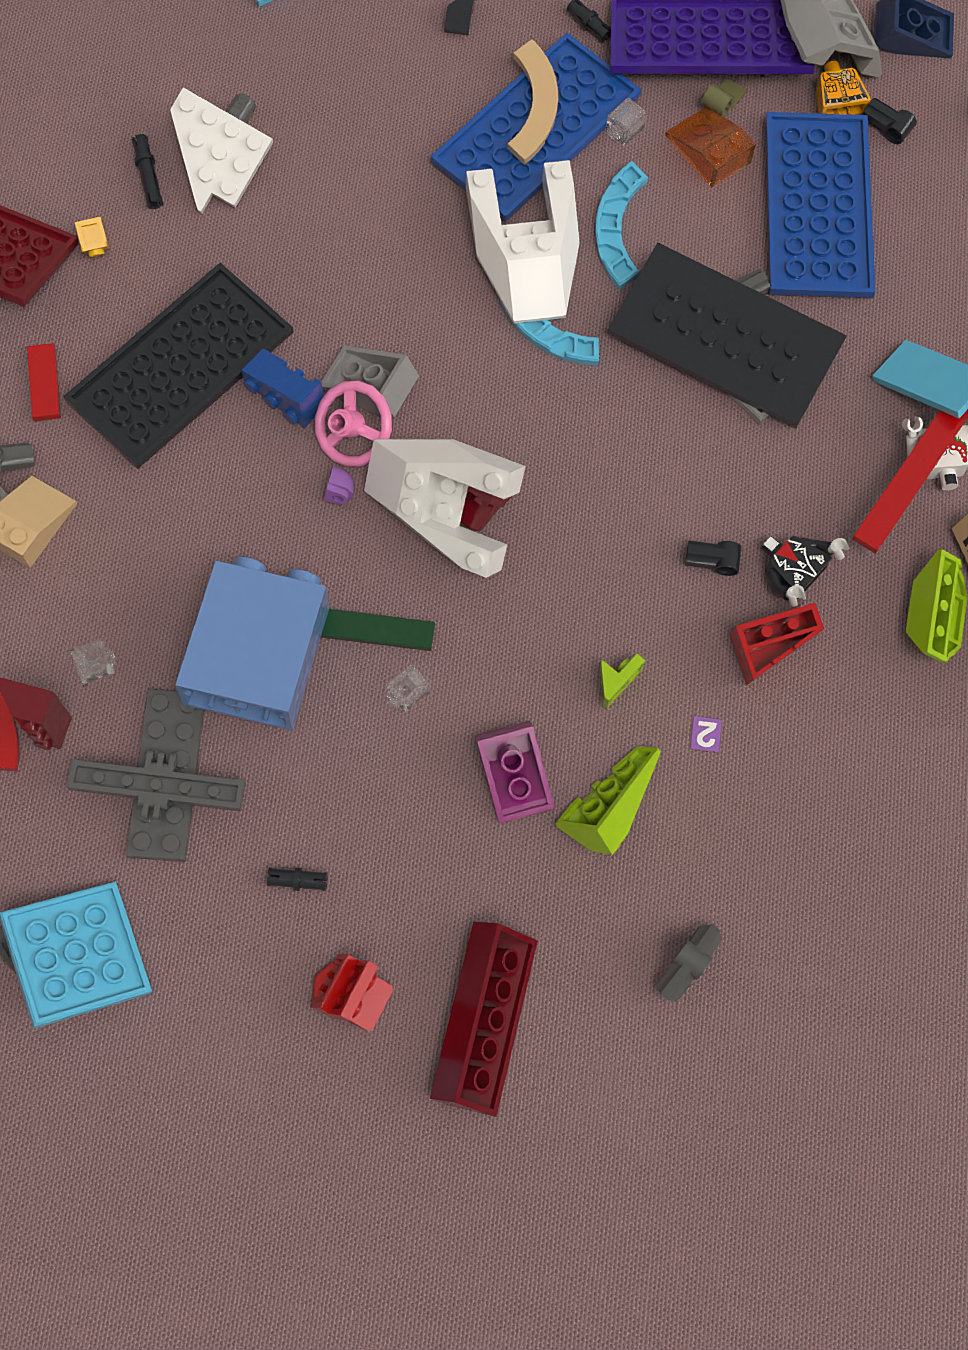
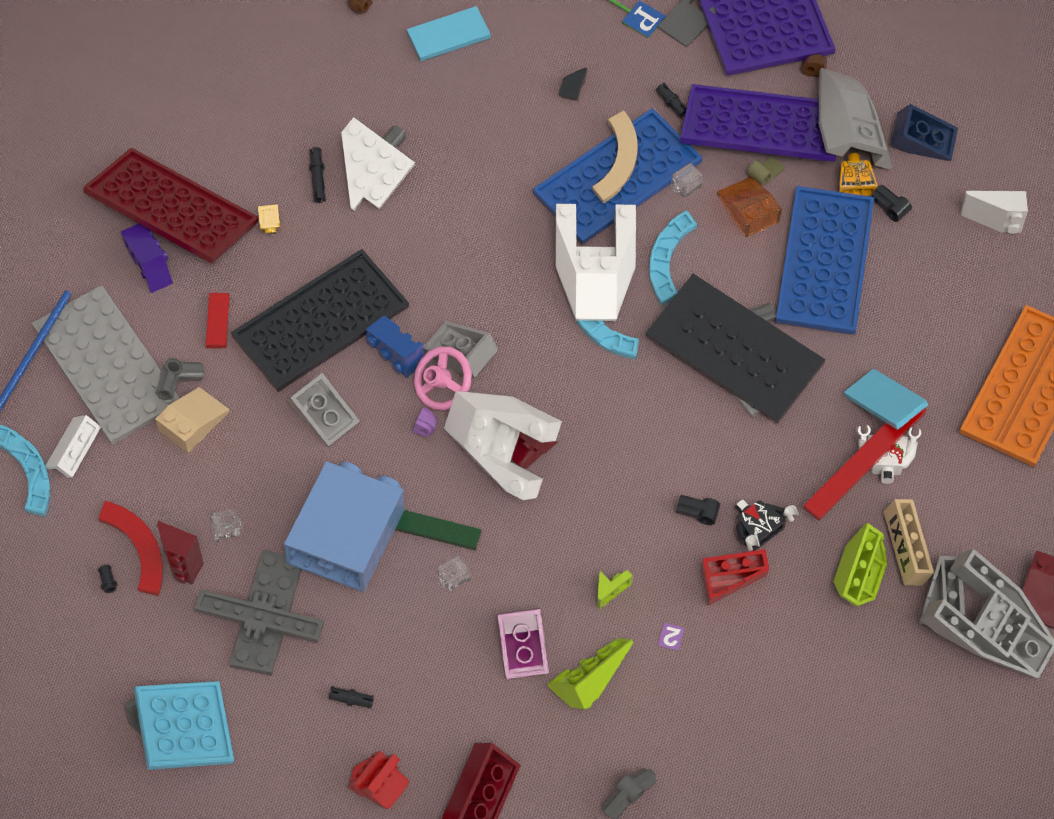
camera: 10 degrees right, 10 degrees down
(201, 486) = (323, 409): none -> light grey slope

